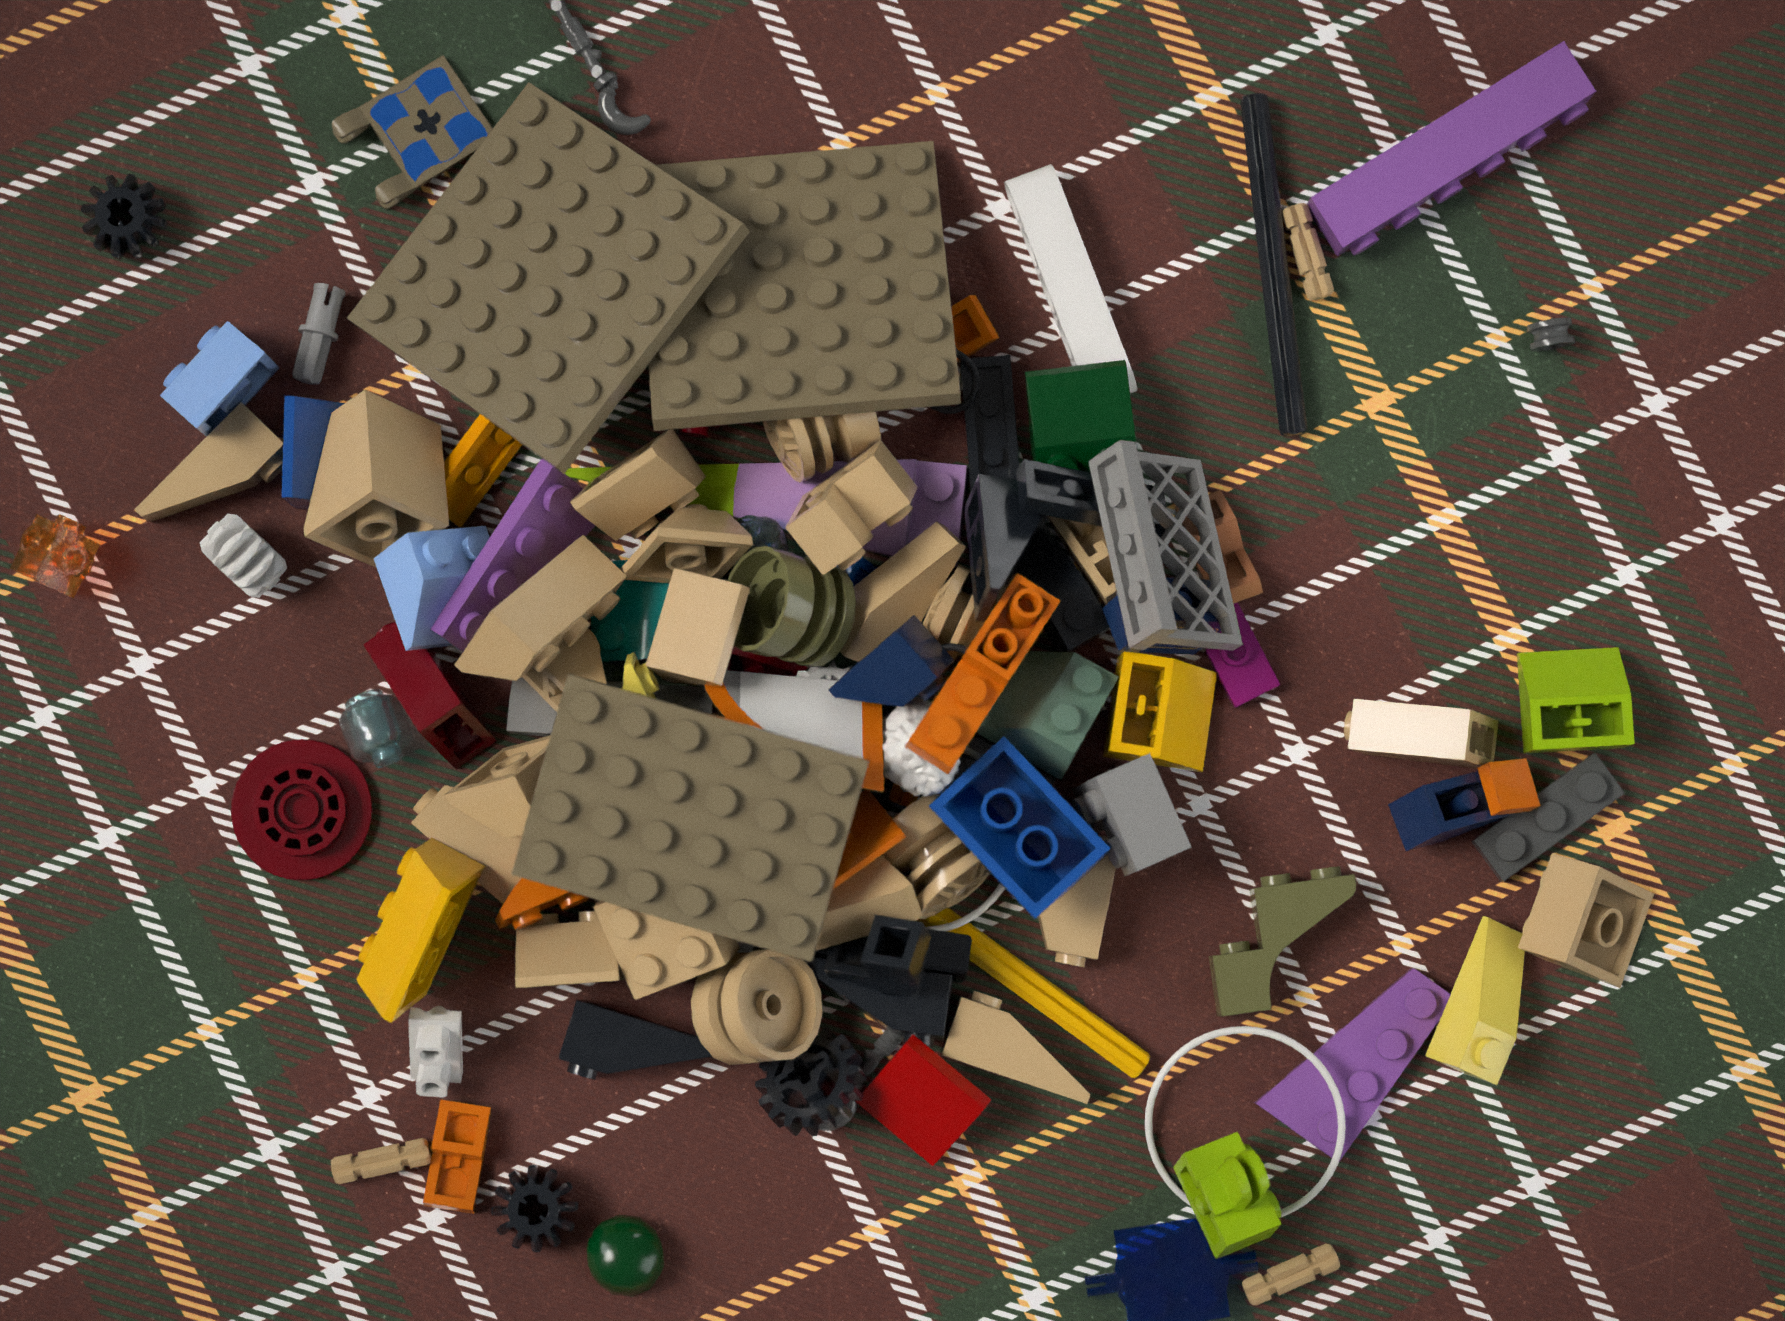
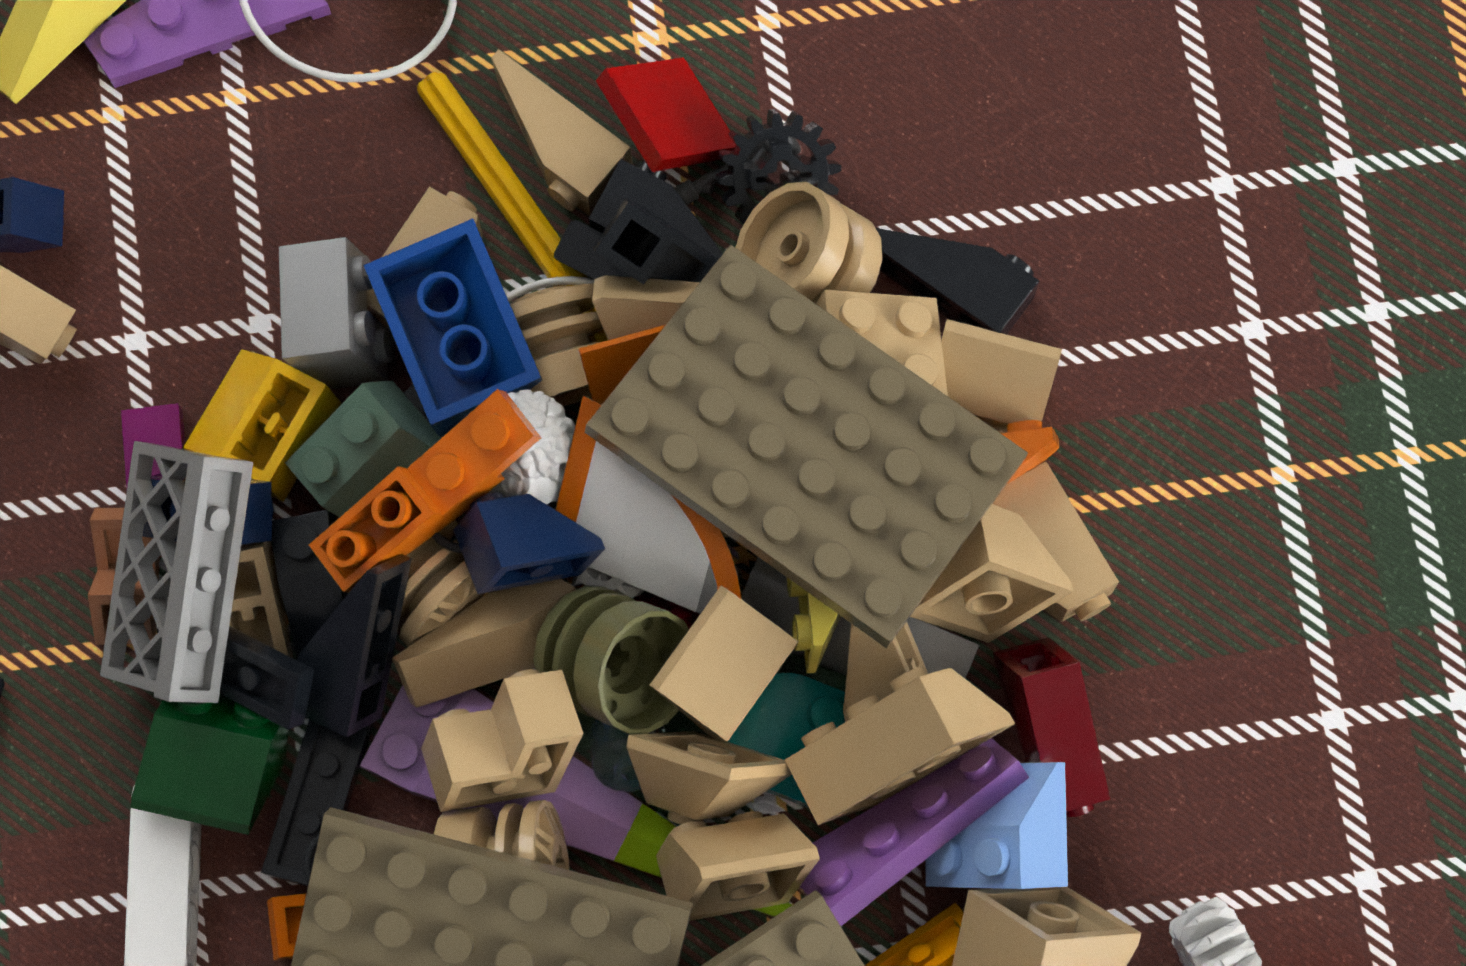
camera: 155 degrees left, 10 degrees down
(301, 809) = (1235, 651): dark red wheel -> none
(375, 728) = (1125, 706): clear light blue head -> none
(381, 1161) = (1261, 255): tan axle -> none
(416, 926) = (1151, 465): yellow slope -> none
(435, 1050) = (1167, 342): white hips -> none
(457, 1156) = (1179, 232): orange slope -> none
(524, 1221) = (1135, 144): black gear -> none
(625, 1255) = (1034, 77): dark green hair -> none
(1280, 916) = (221, 172): olive arch -> none

